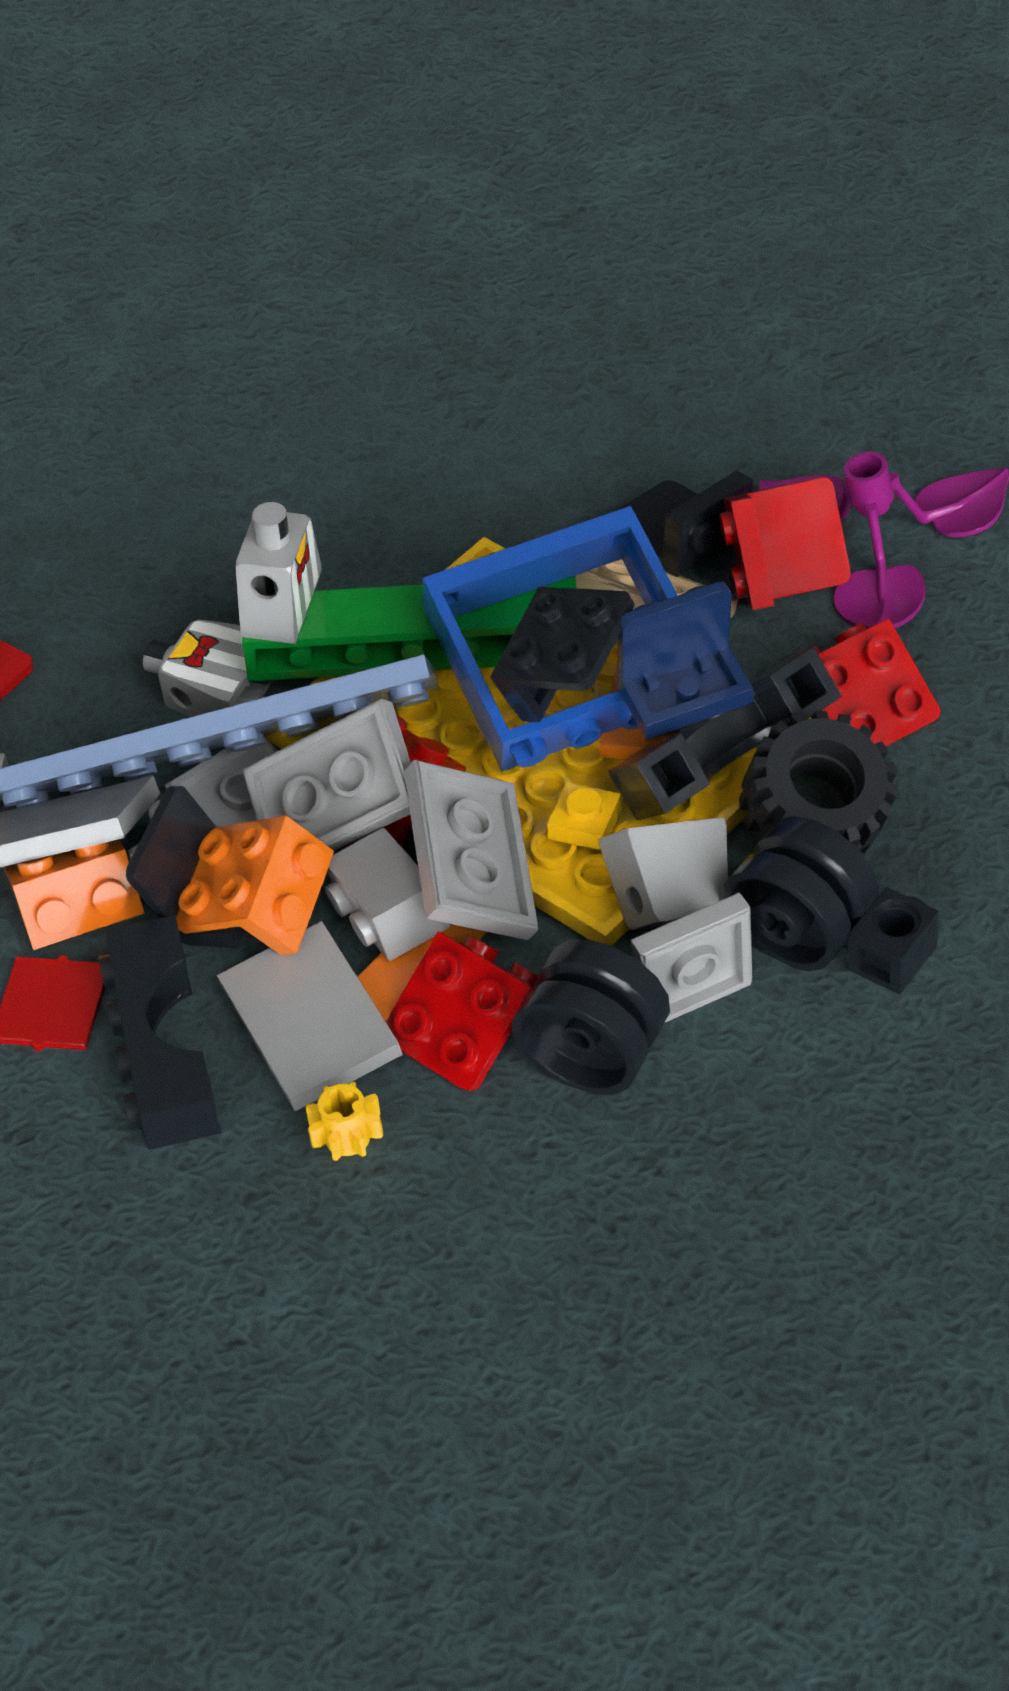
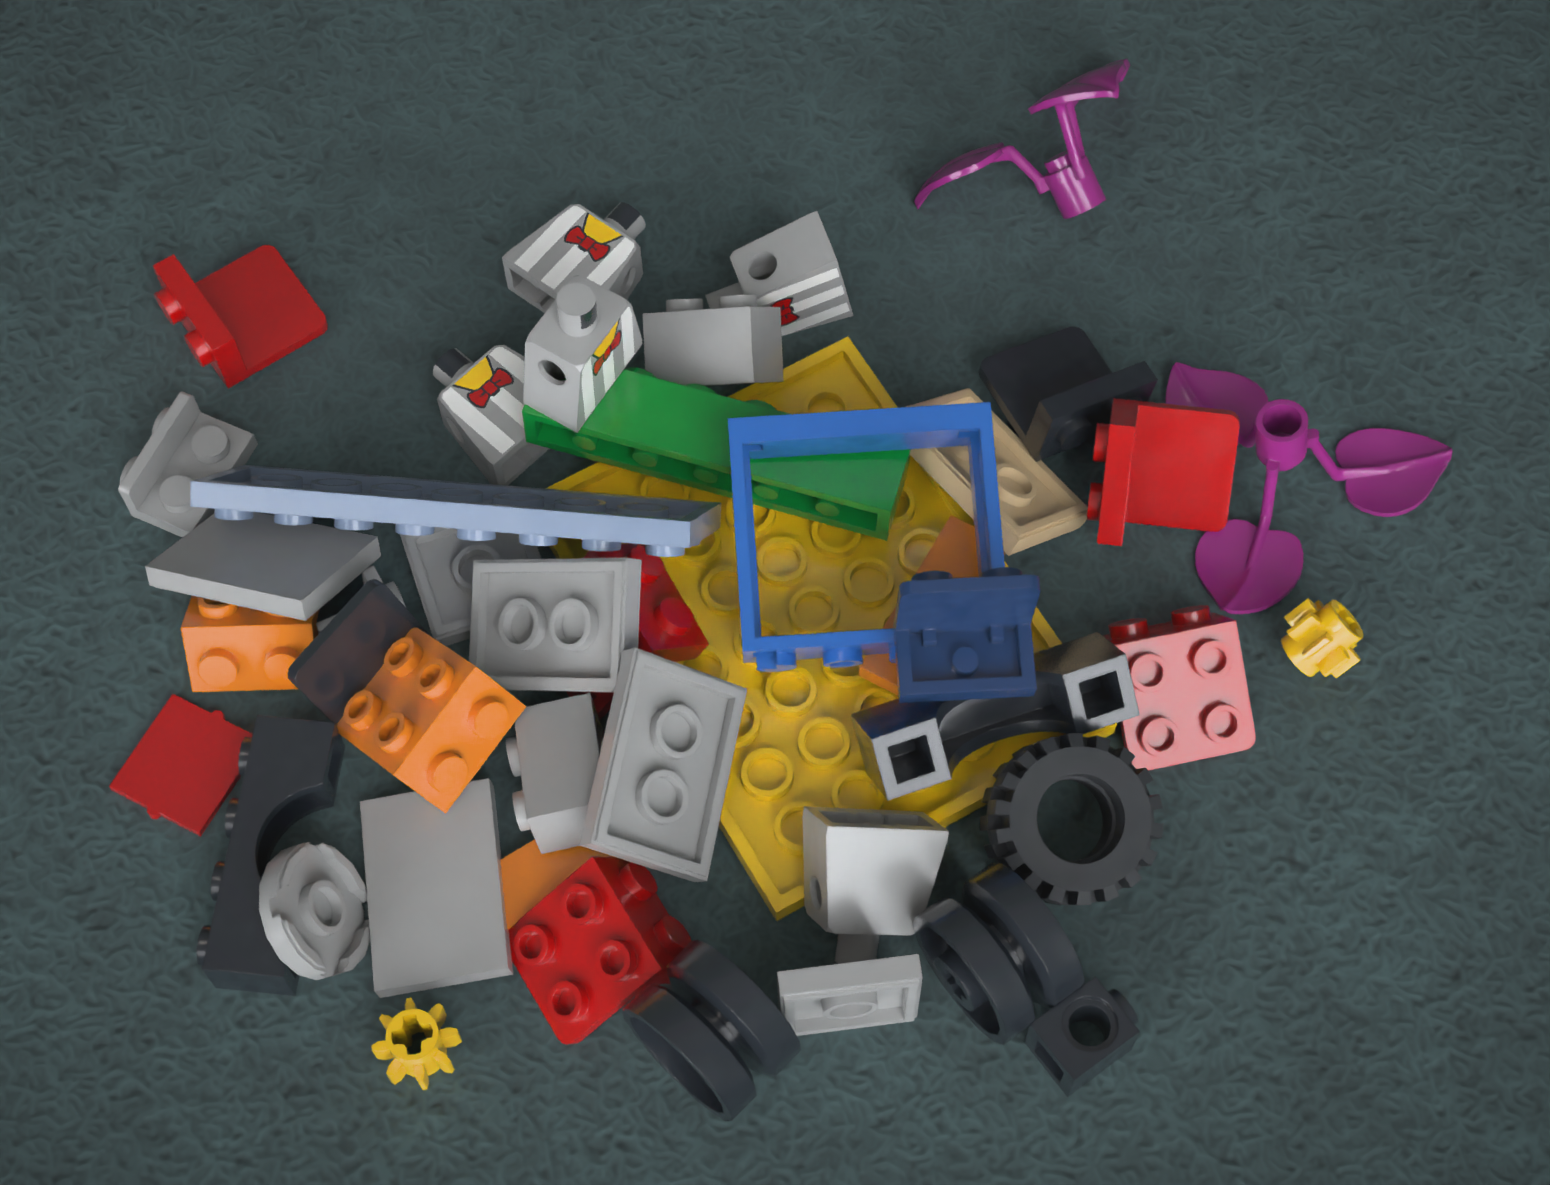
camera: 15 degrees right, 15 degrees up
(207, 559) = (577, 245): none -> torso
(218, 1047) = (314, 910): none -> light grey tile
(386, 555) = (714, 345): none -> light grey brick
(416, 510) = (794, 272): none -> light grey torso
(559, 646) = (835, 576): black bracket -> none
(584, 815) = (811, 752): yellow plate -> none
(617, 375) = (1069, 172): none -> magenta plant
(962, 620) = (1322, 638): none -> yellow gear

